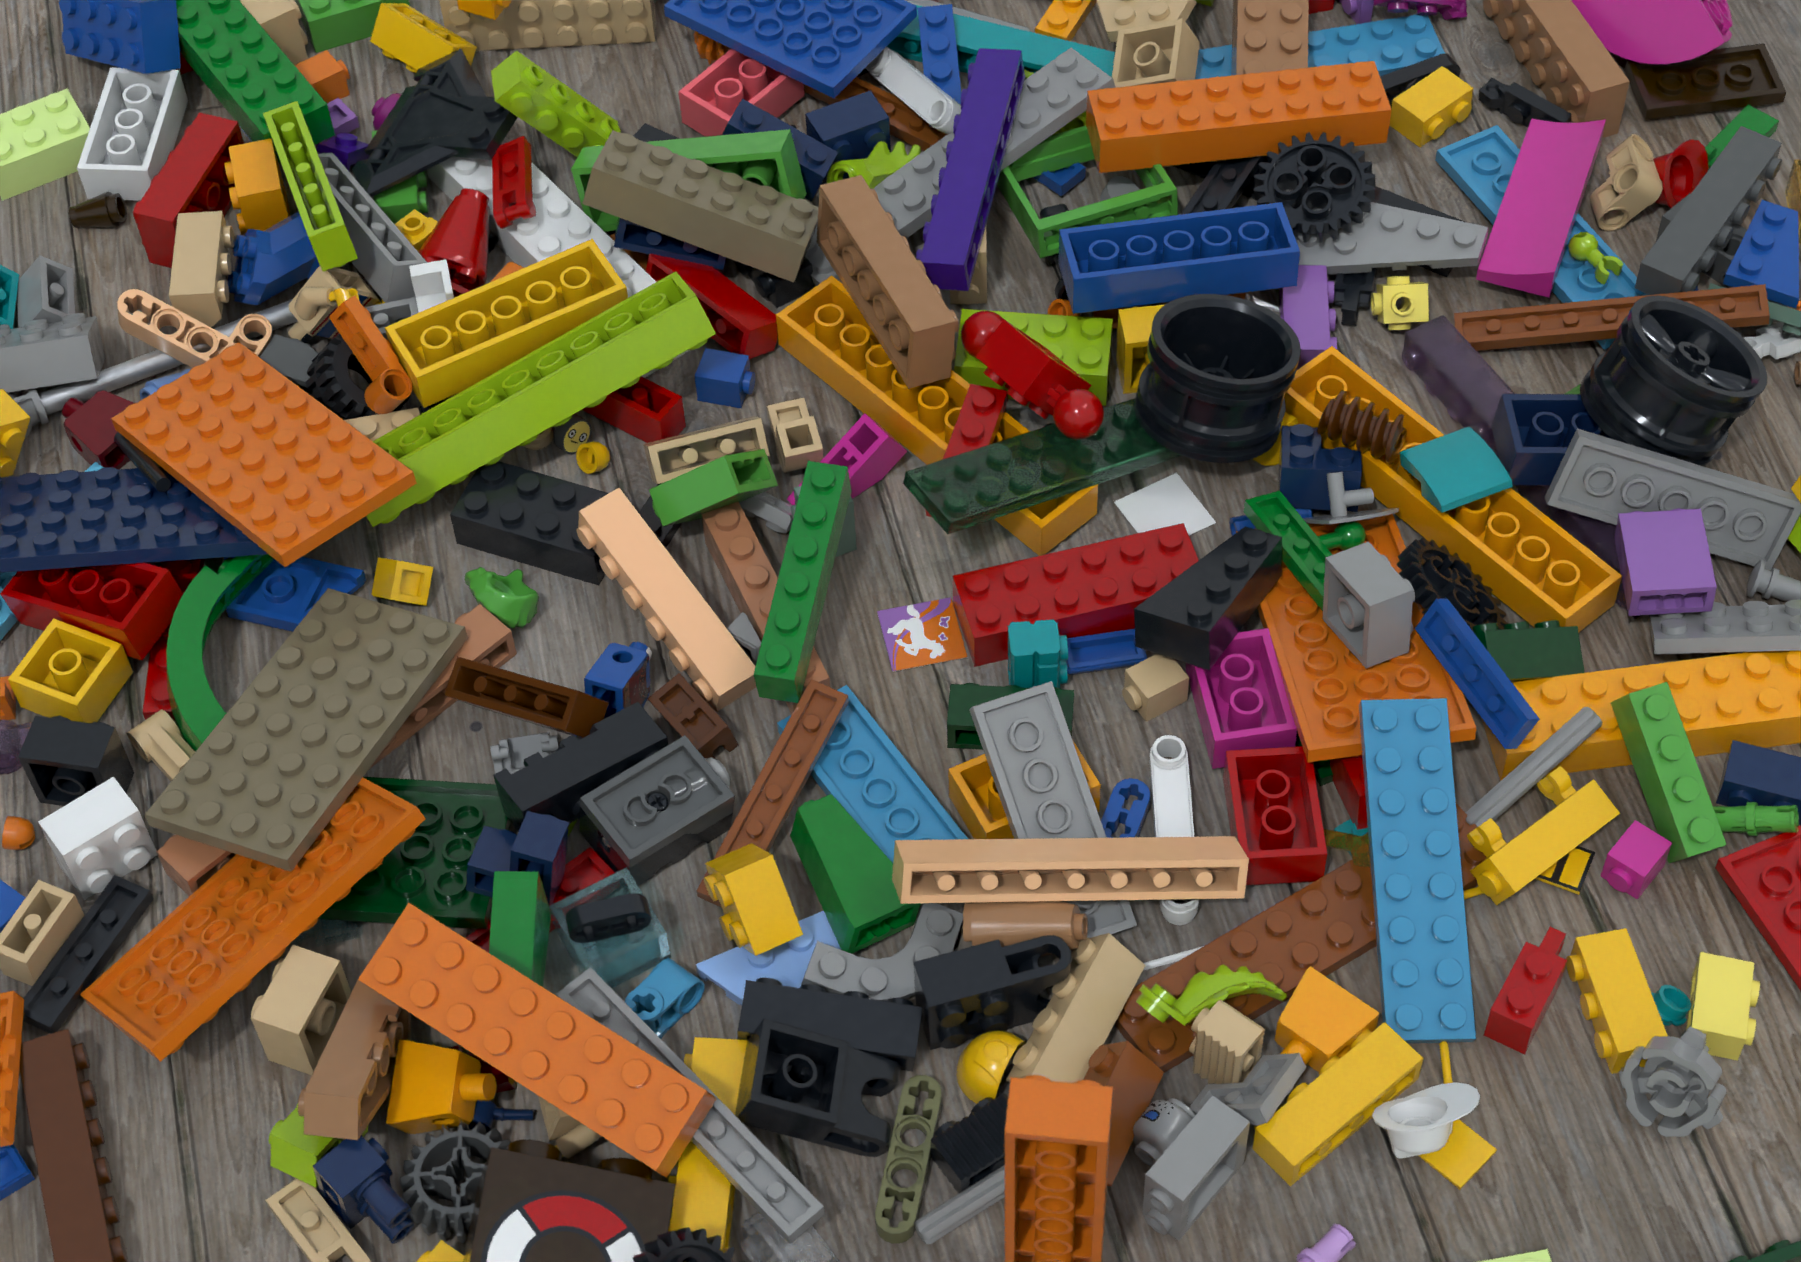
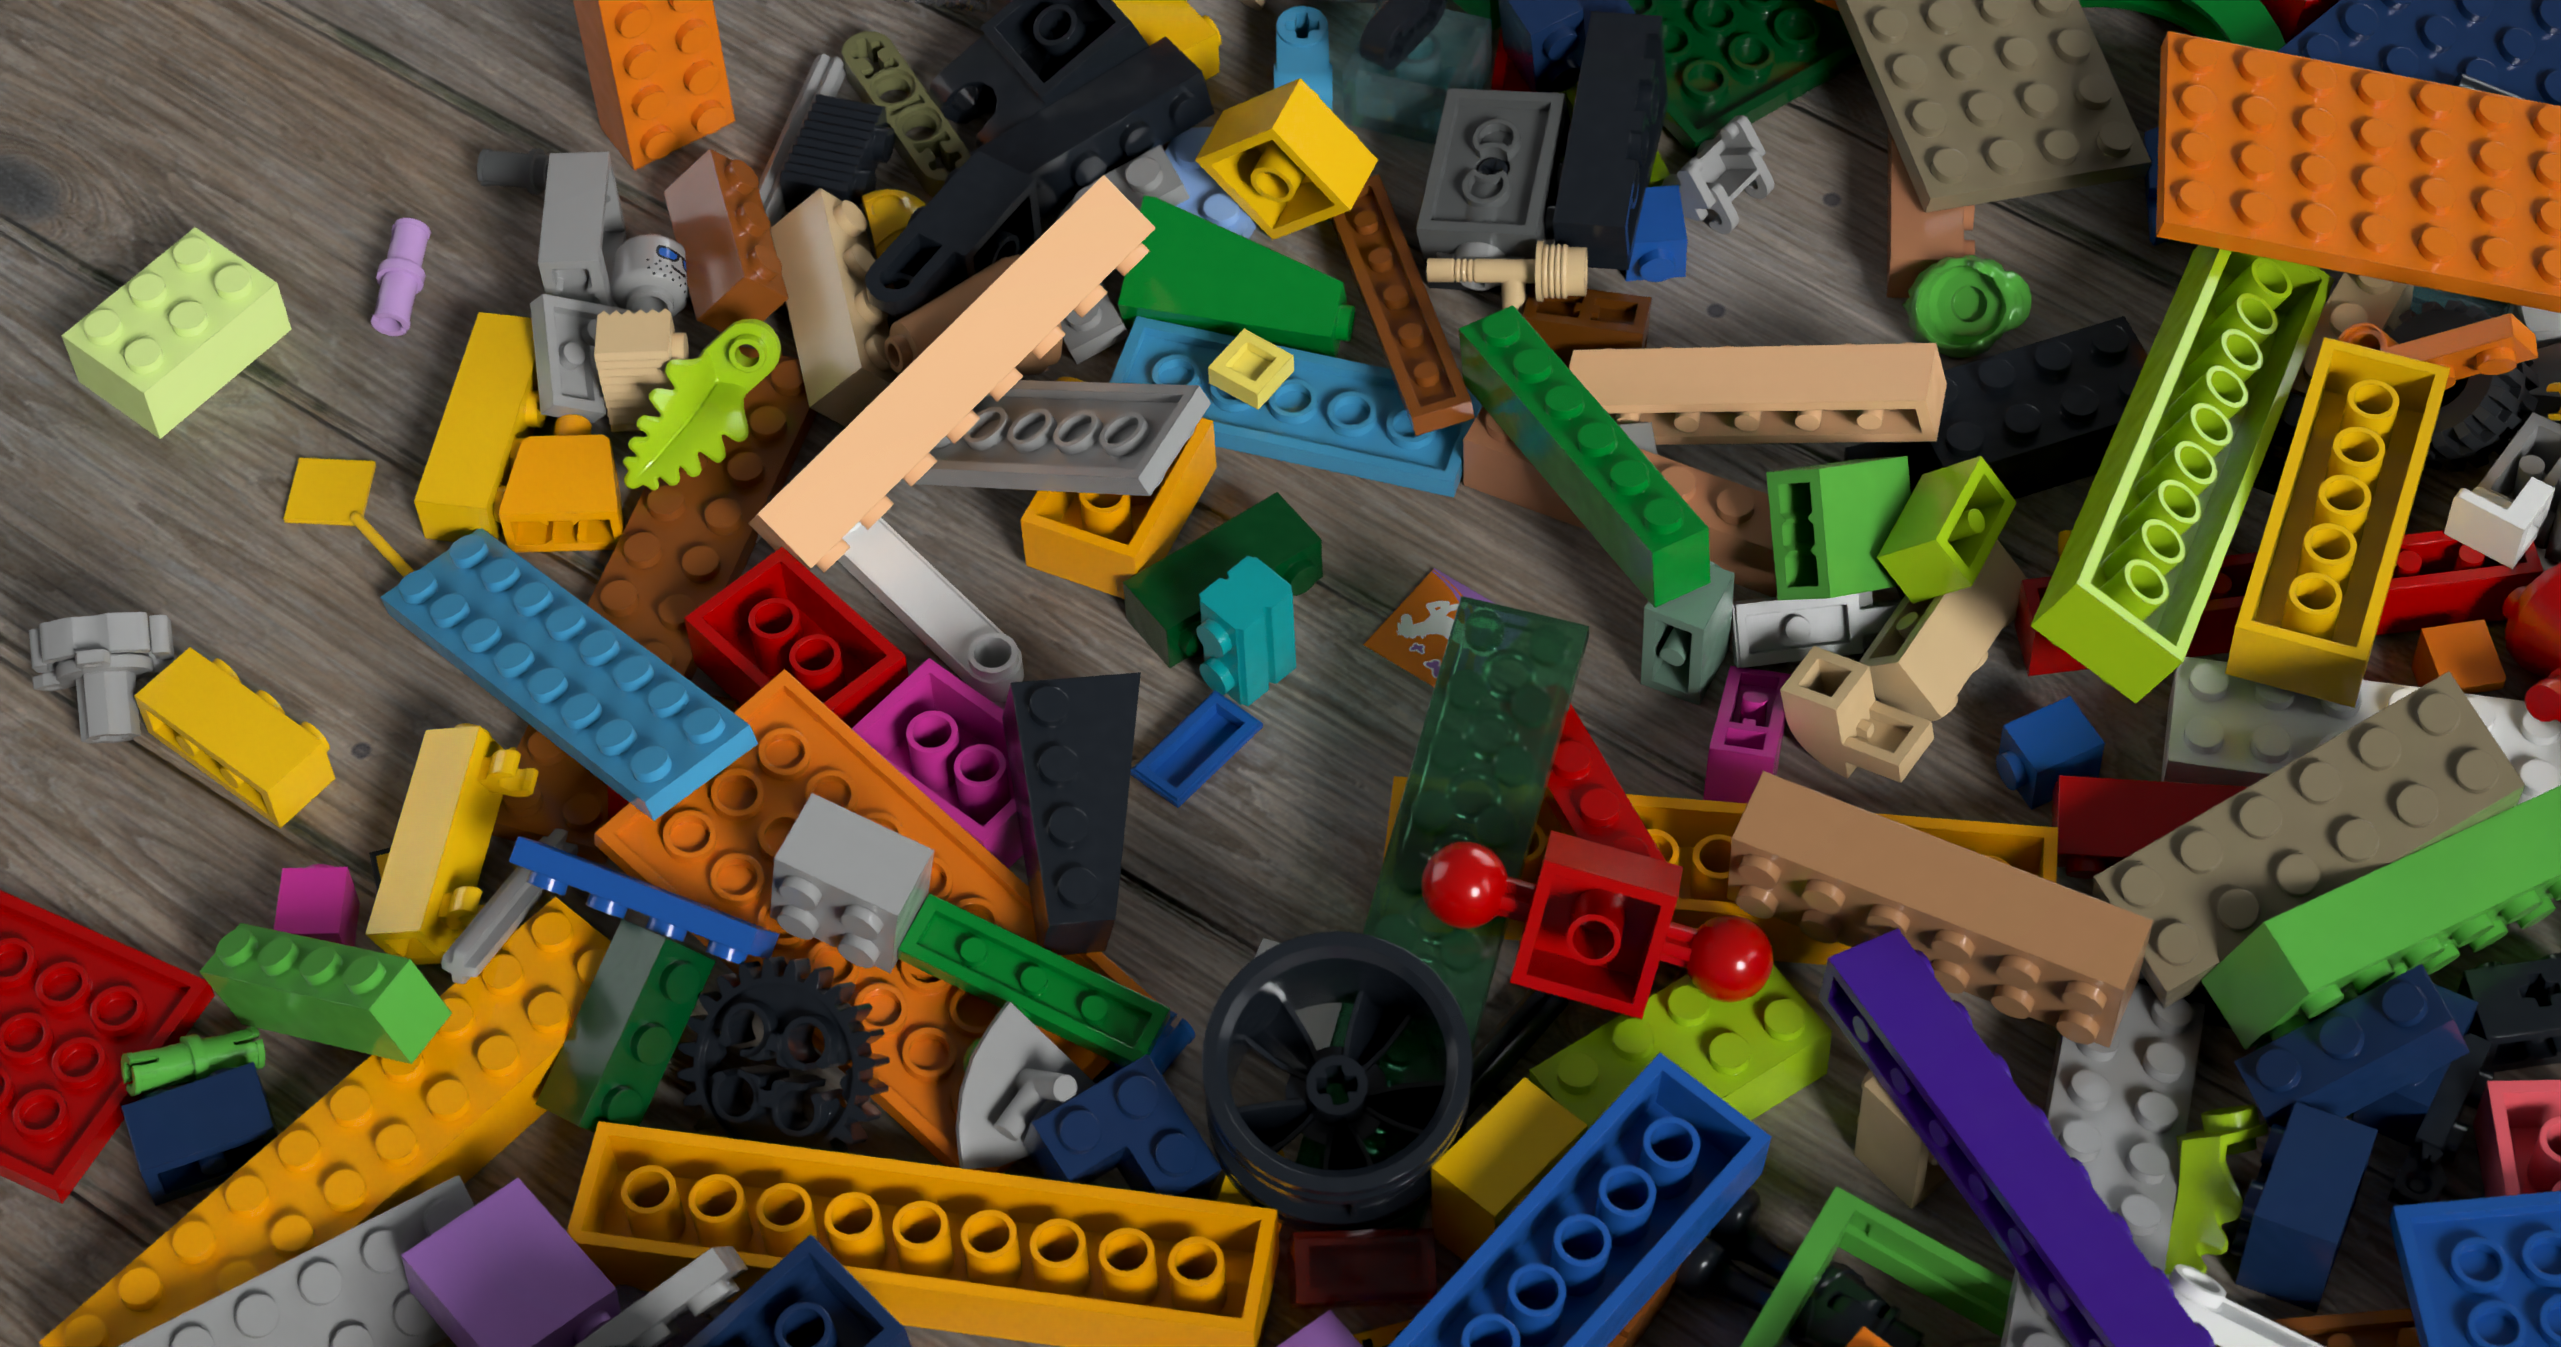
camera: 140 degrees right, 0 degrees up
(402, 581) = (2103, 255): yellow panel -> none
(524, 698) = (1768, 184): reddish brown brick -> none
(620, 676) = (1699, 285): blue torso -> none
(671, 450) = (1947, 530): none -> lime brick
(695, 723) = (1555, 271): none -> tan piece
(891, 803) = (1251, 369): none -> light yellow plate
(1080, 588) = (1281, 782): red brick -> none
(1132, 818) = (1002, 573): blue beam -> none
(1363, 427) = (1078, 1177): reddish brown piece -> none
(1426, 1118) = (374, 457): white piece -> none
(1456, 469) = (905, 1218): teal slope -> none
(1527, 993) = (347, 666): red hinge -> none
(1672, 1005) = (155, 773): teal plate -> none
(1721, 1003) = (107, 809): light yellow brick -> none

